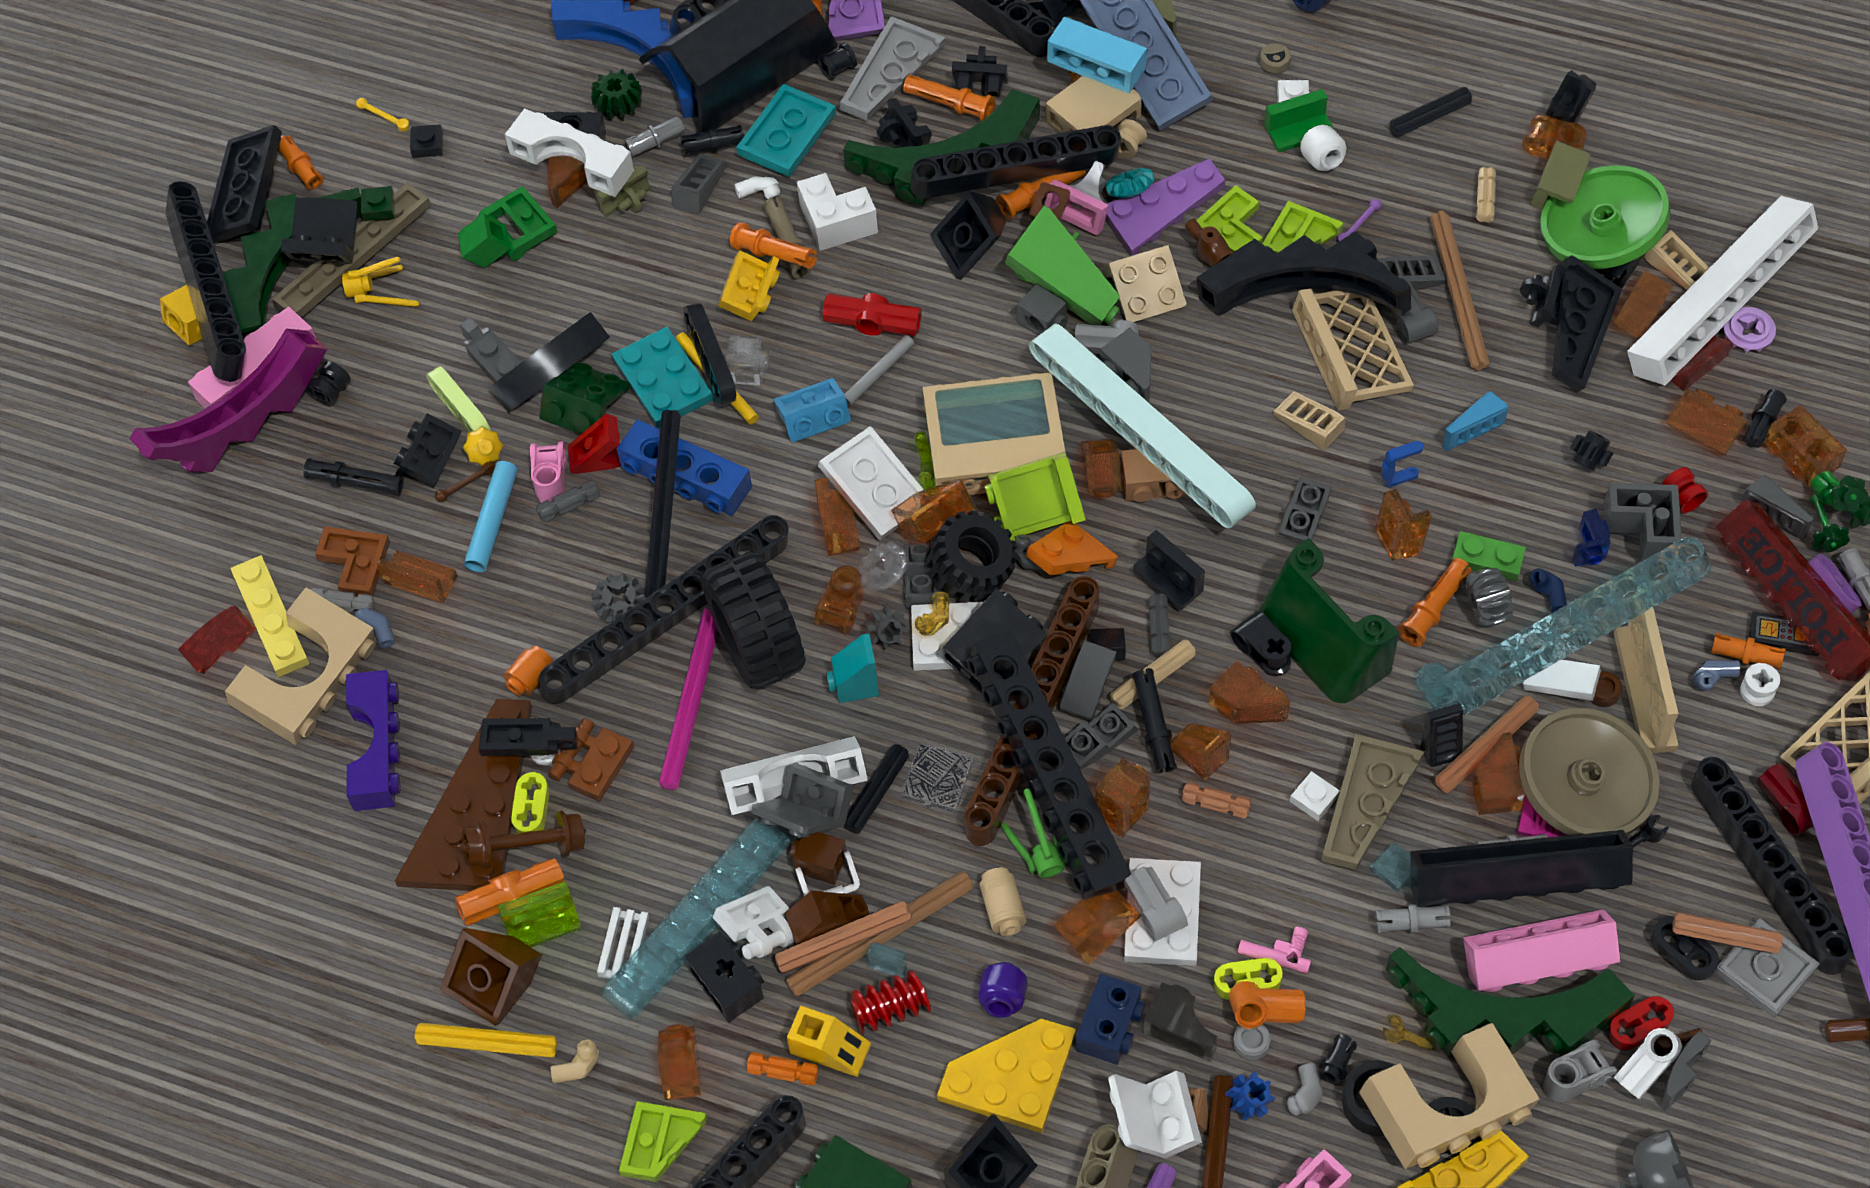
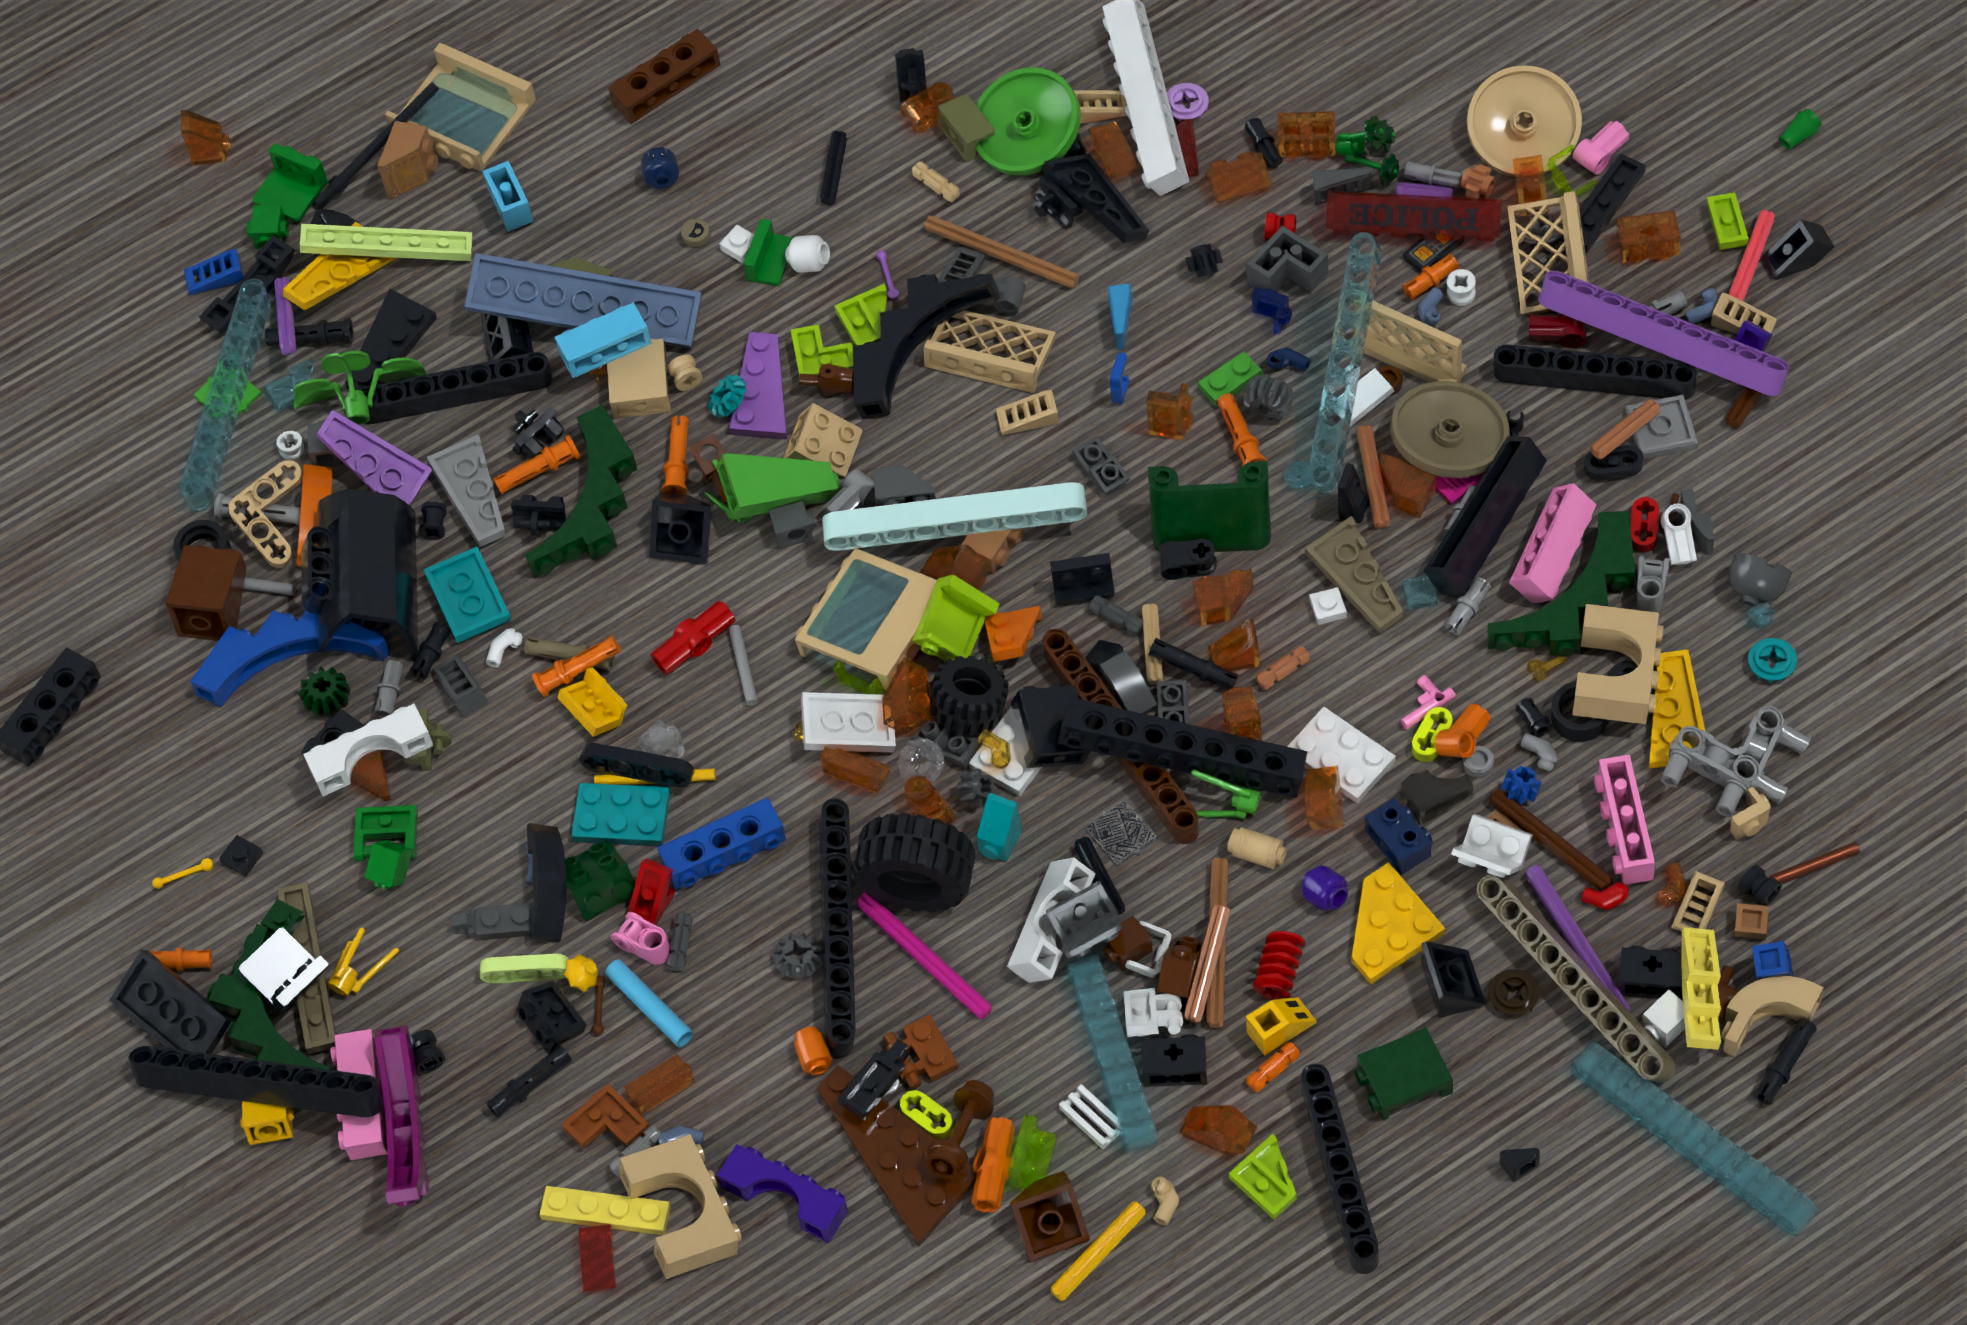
camera: 50 degrees left, 0 degrees up
(663, 501) = (749, 873): black axle -> none
(813, 409) = (742, 726): dark azure bracket -> none
(835, 218) = (579, 612): white brick -> none
(887, 960) = (1244, 948): clear light blue tile -> none
(1004, 171) = (647, 465): black beam -> none
(1084, 204) = (729, 435): bright pink piece -> none
(1158, 911) = (1348, 750): light grey piece -> none

